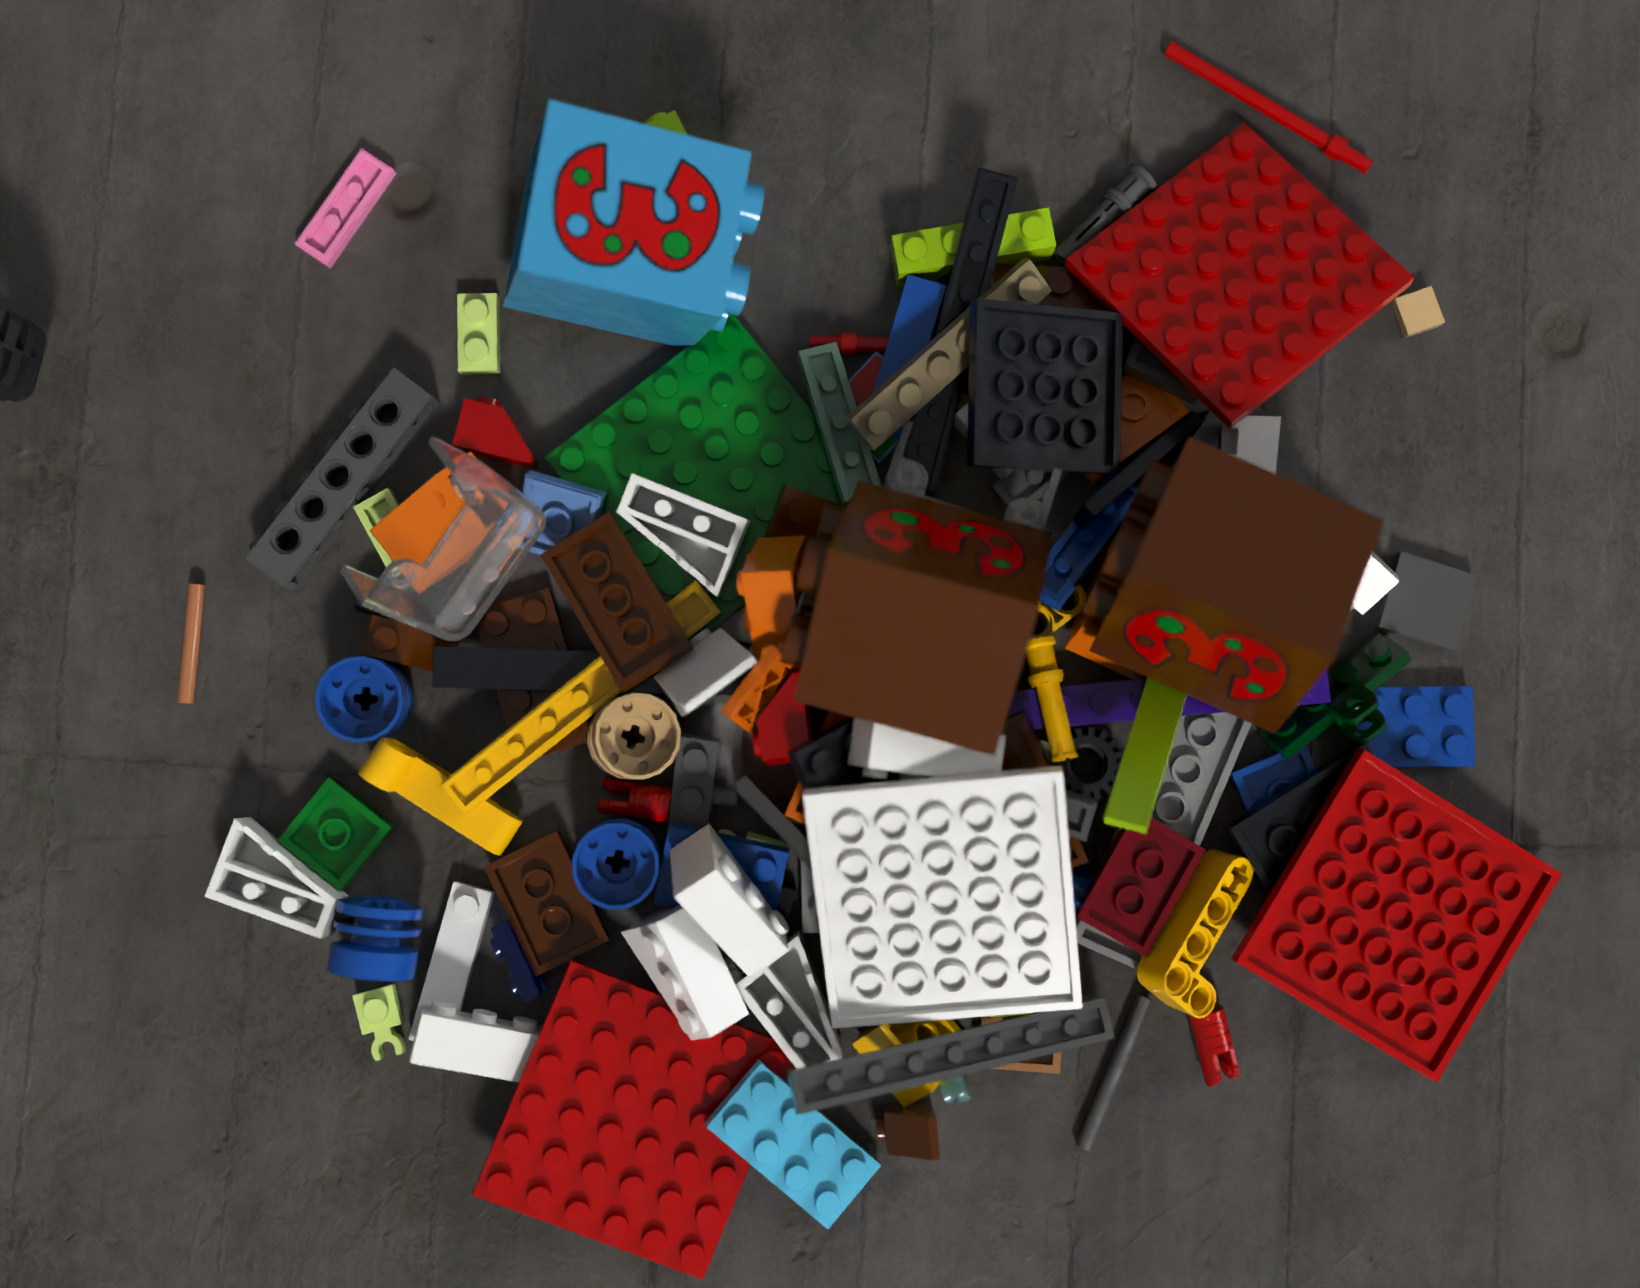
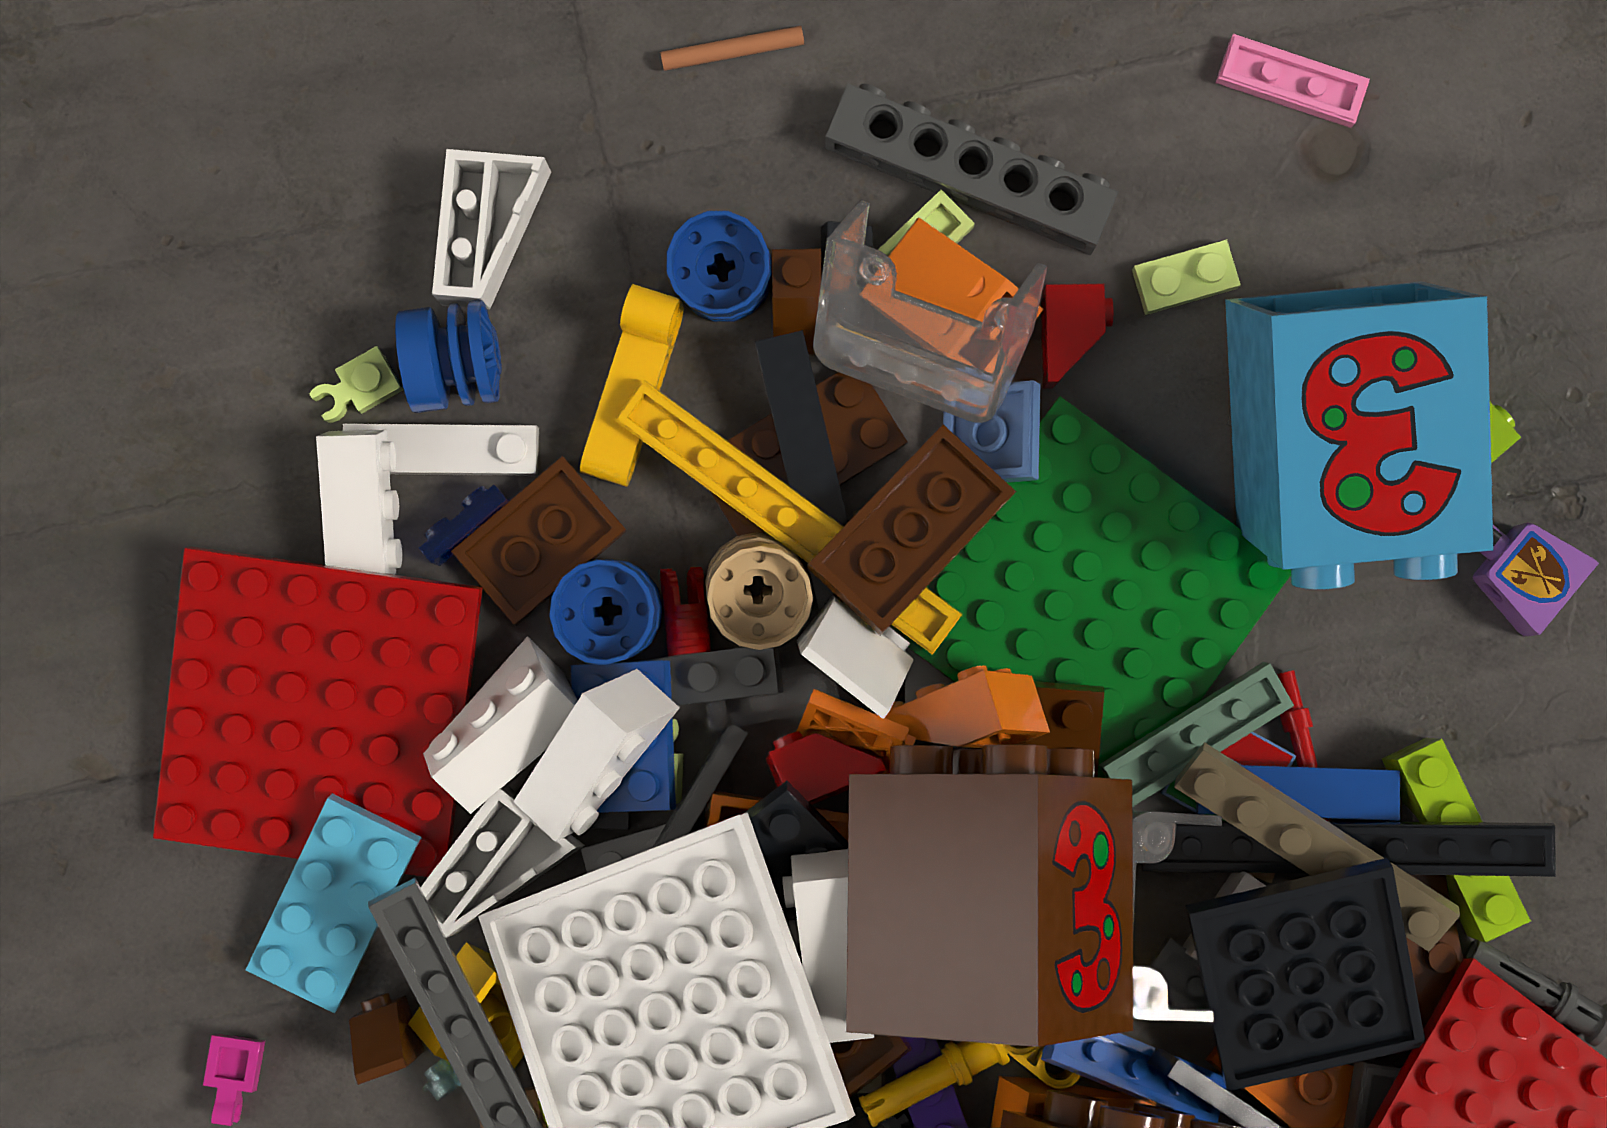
camera: 80 degrees right, 0 degrees up
(336, 833) = (557, 275): green plate -> none
(687, 529) = (1020, 587): white wedge -> none
(784, 133) = (1531, 576): none -> torso
(904, 1258) = (232, 1068): none -> dark pink plate

